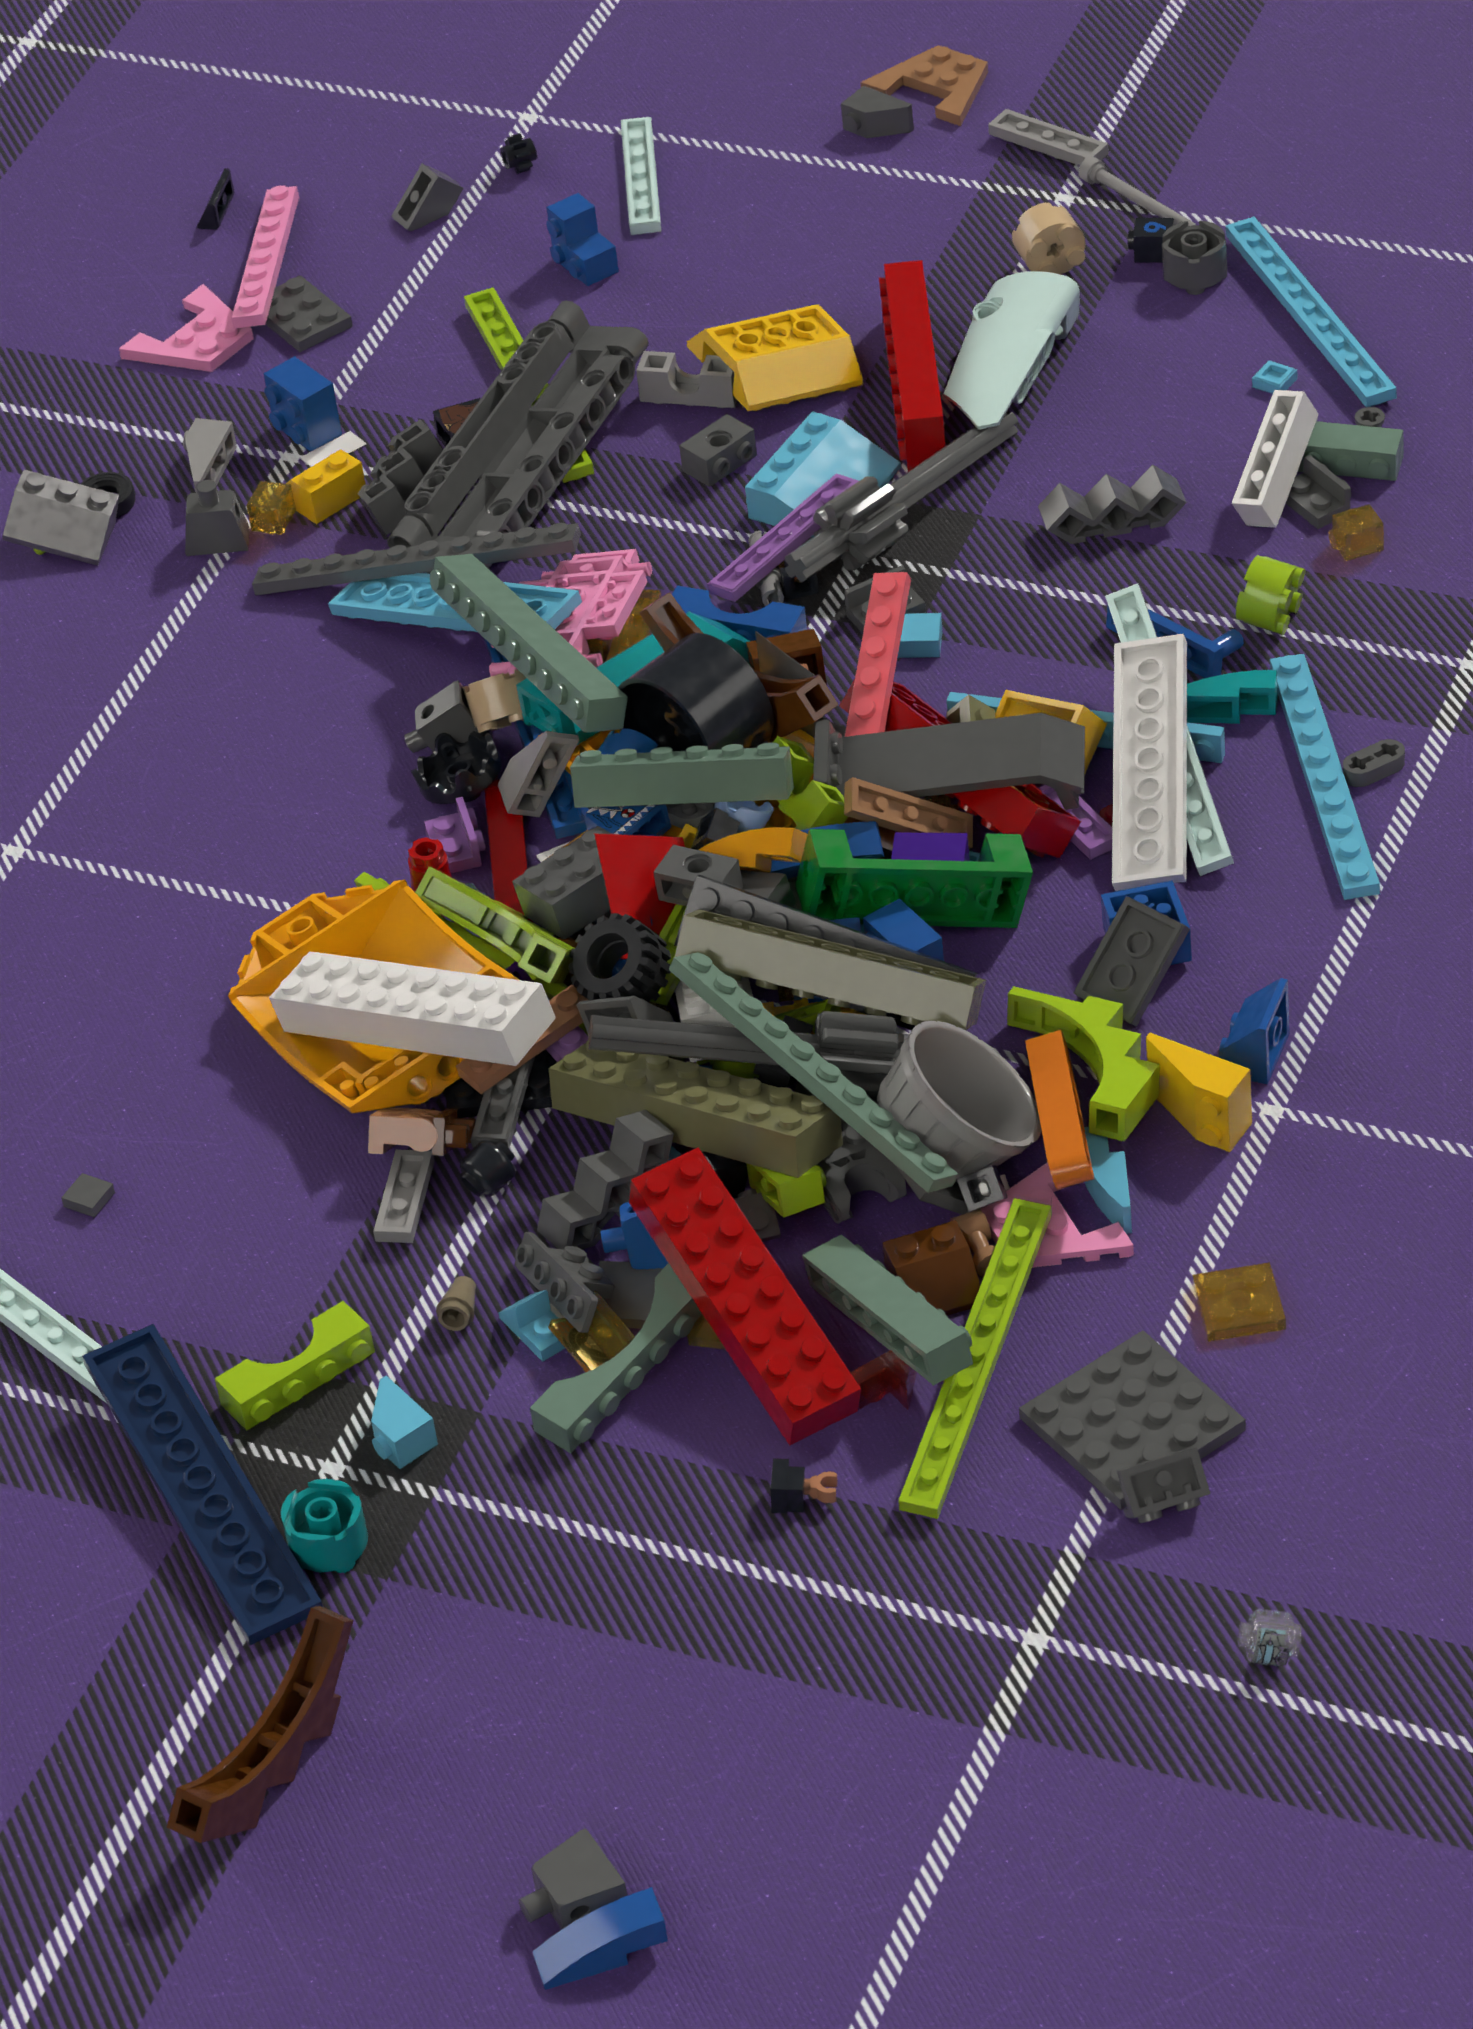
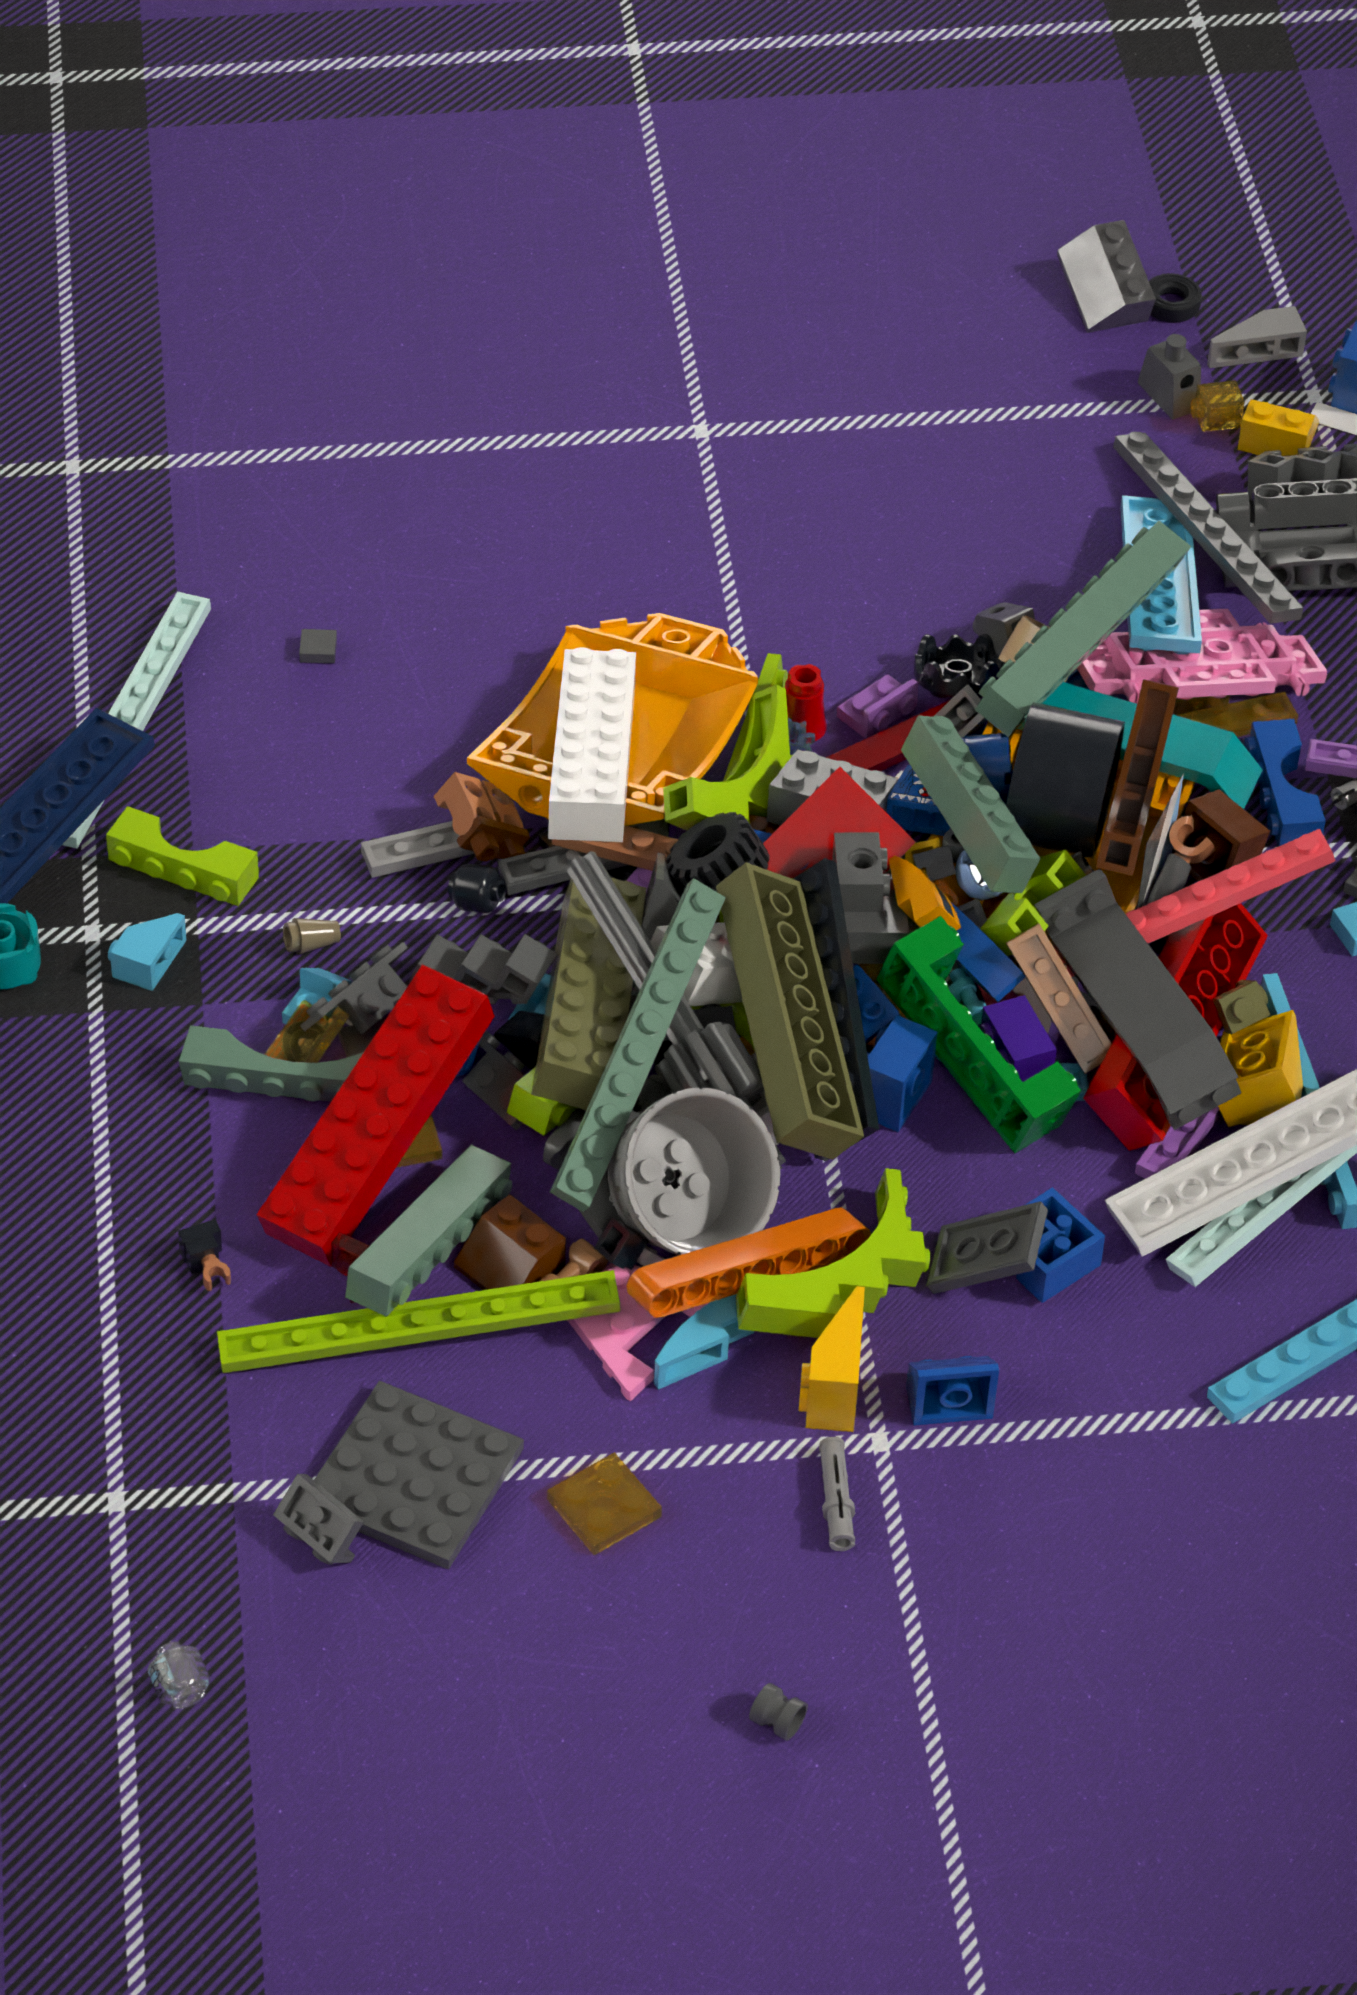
camera: 55 degrees right, 5 degrees up
(1334, 1151) = (838, 1506): none -> light grey pin

